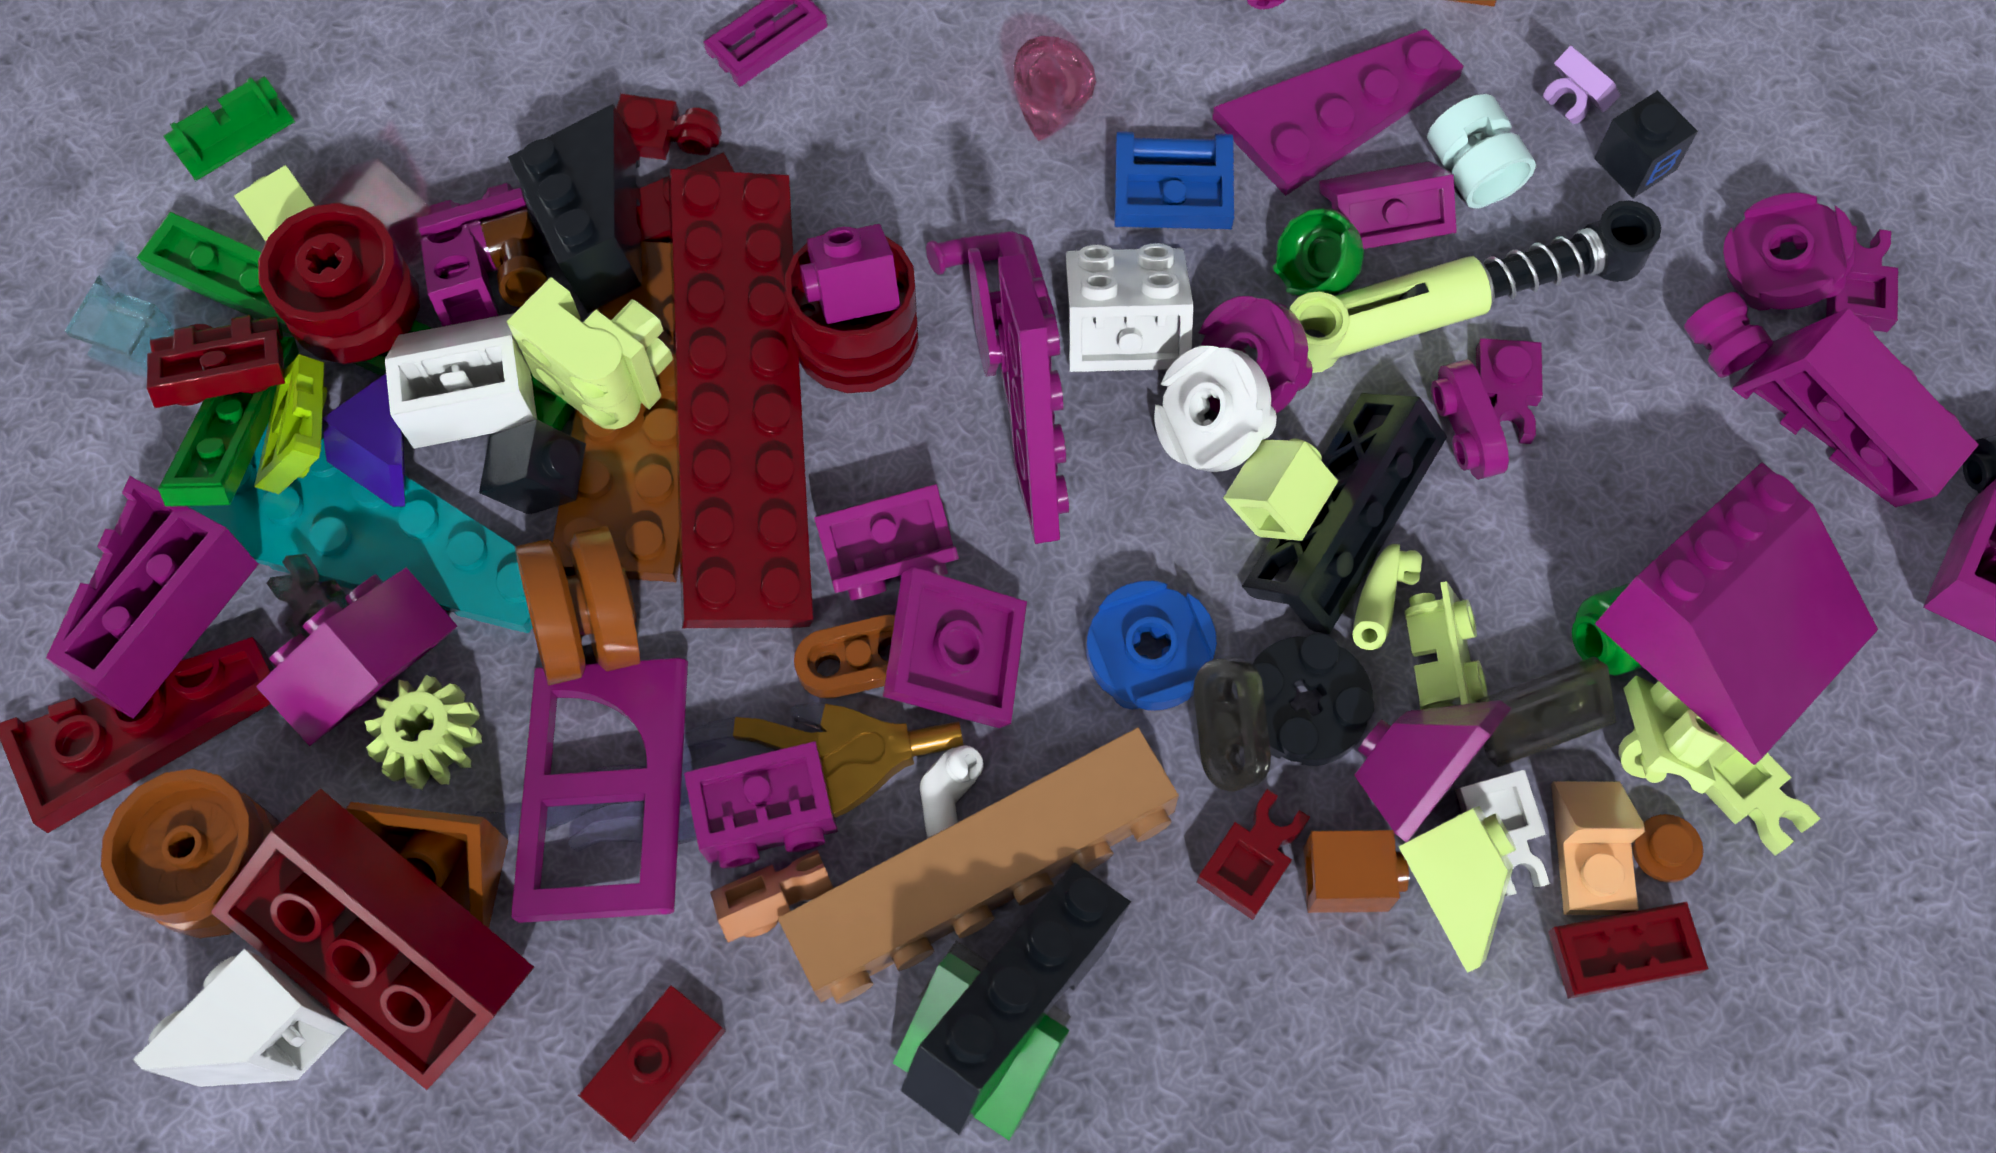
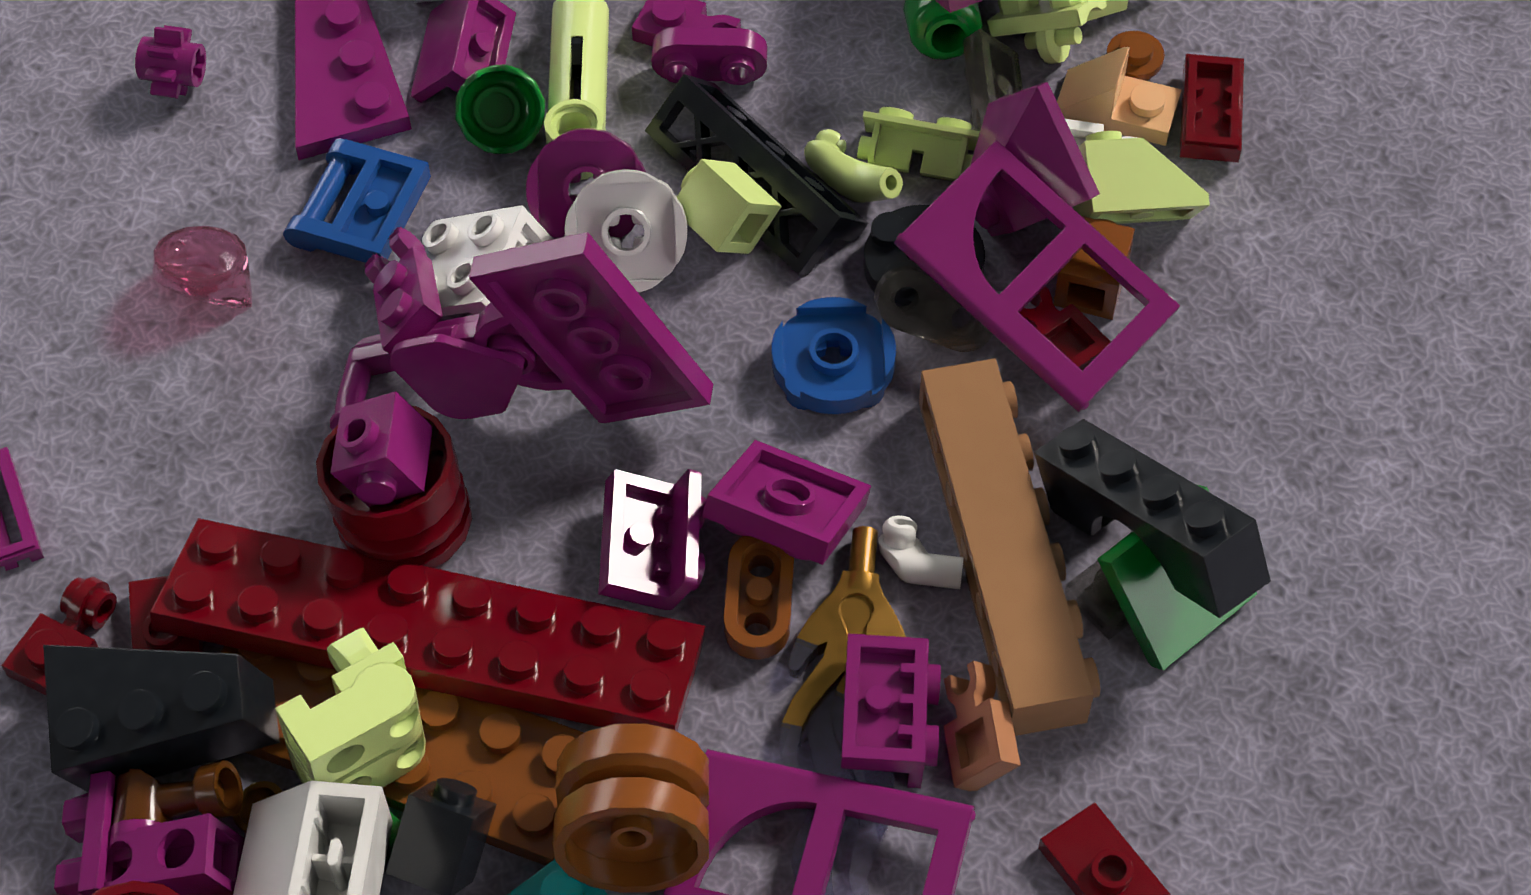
camera: 75 degrees left, 10 degrees down
(1066, 239) = (404, 290): none -> magenta hinge
(1279, 703) = (944, 249): none -> magenta window

